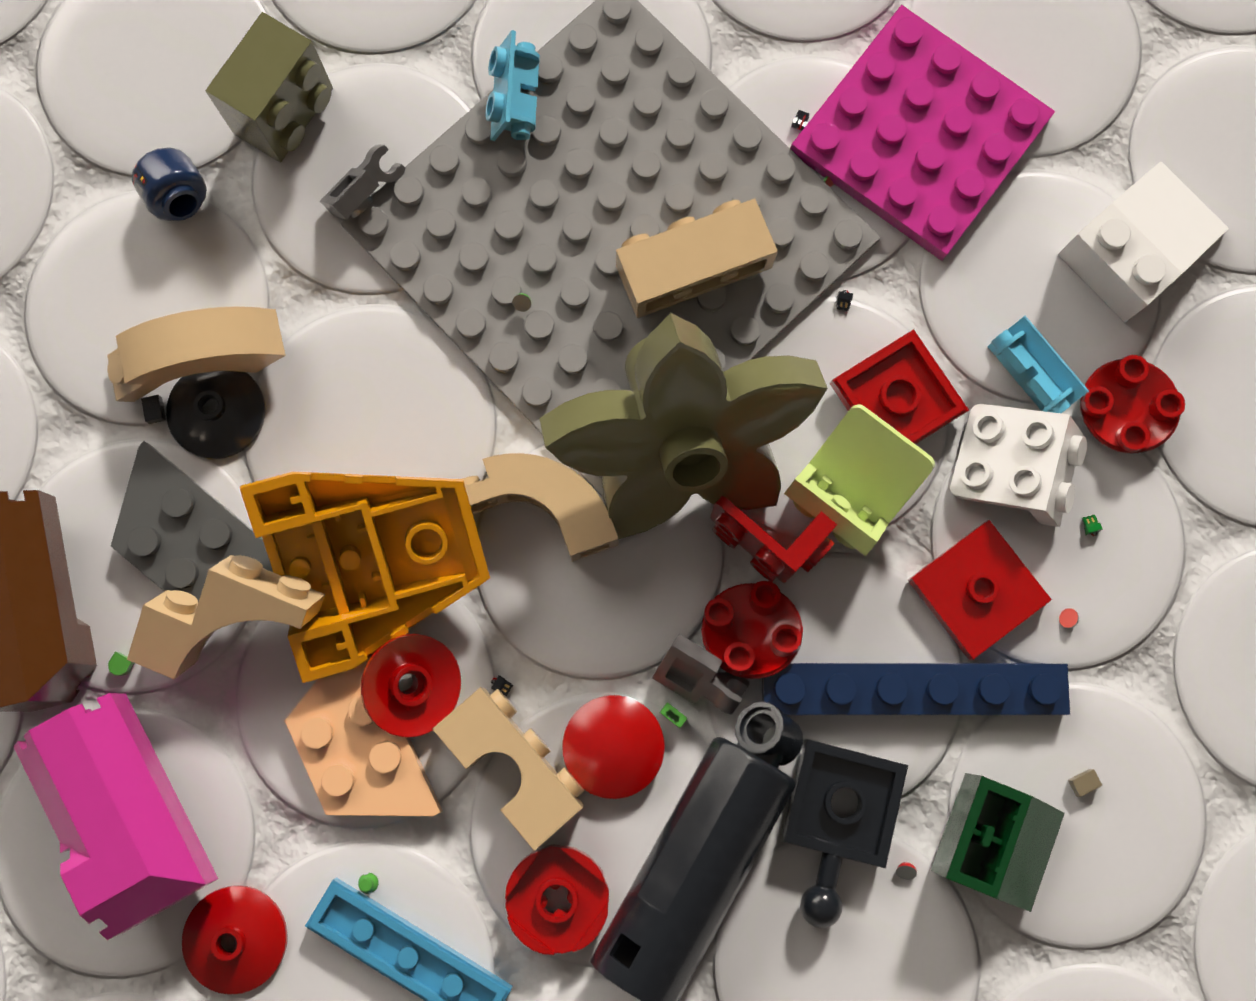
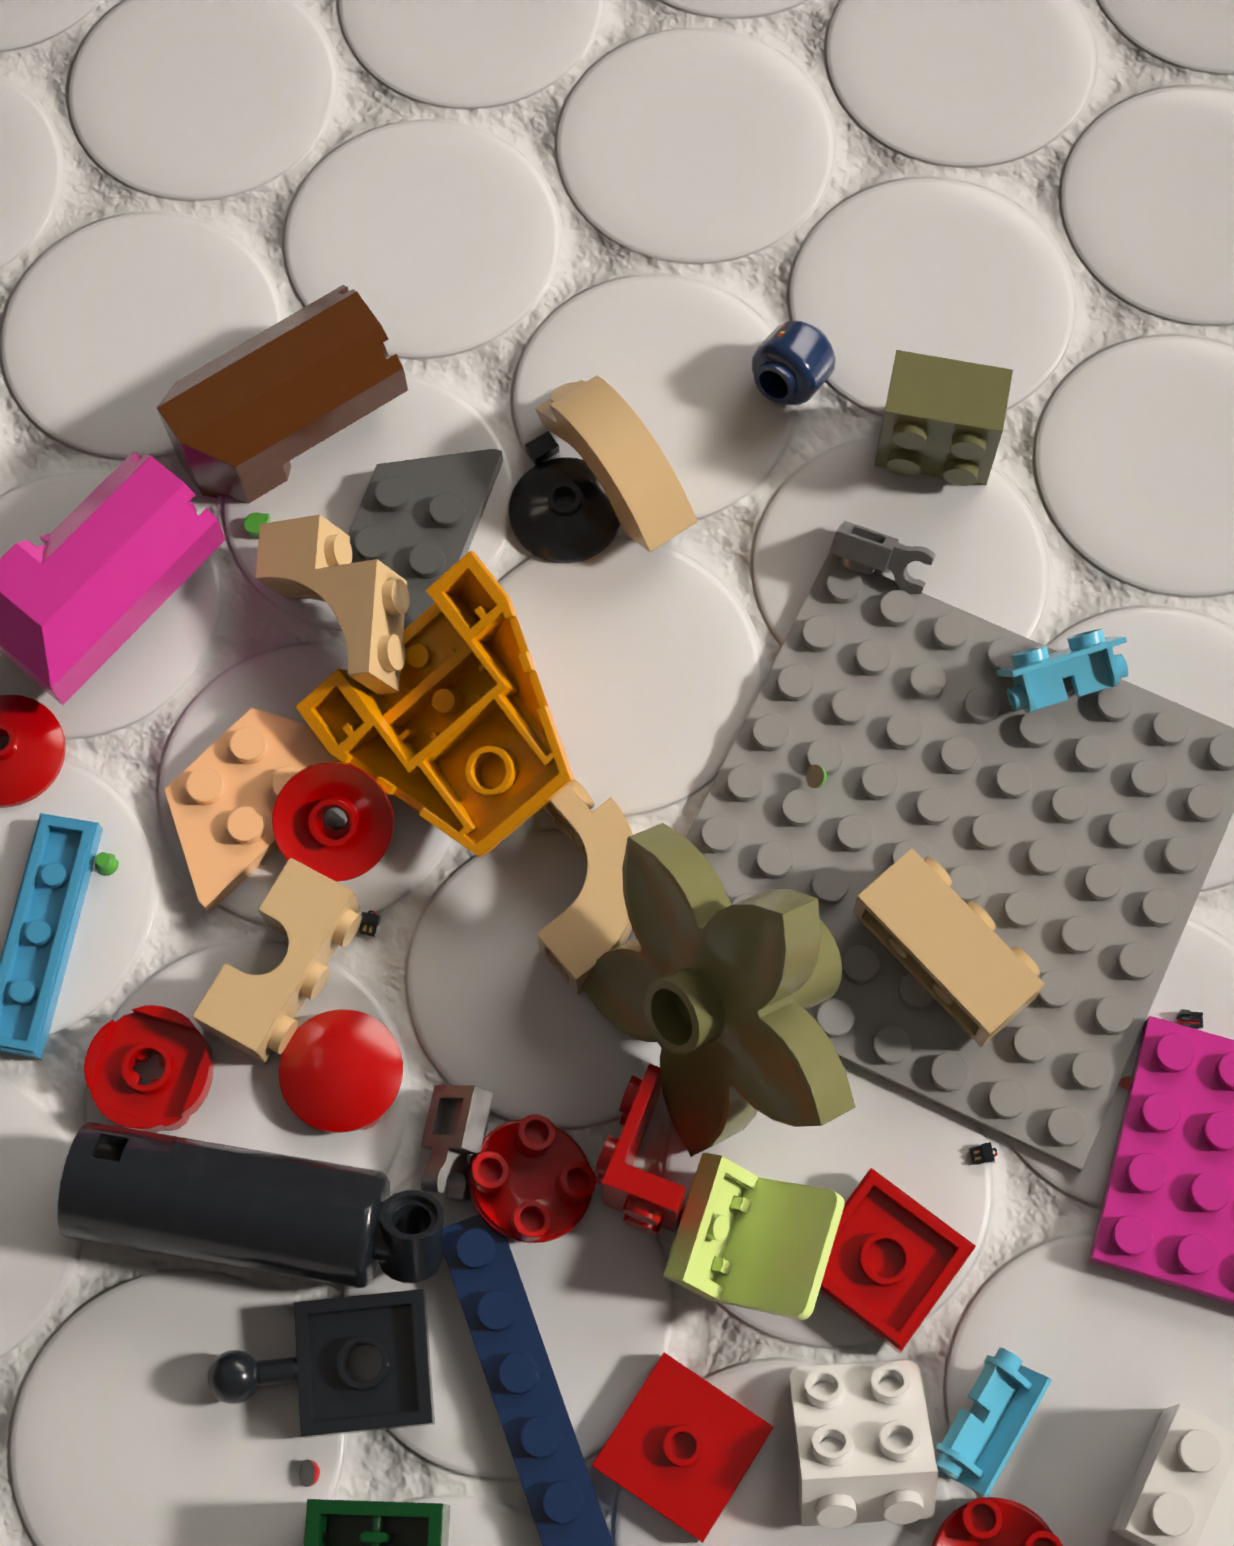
camera: 75 degrees right, 10 degrees down
(673, 715) = (400, 1127): bright green piece -> none

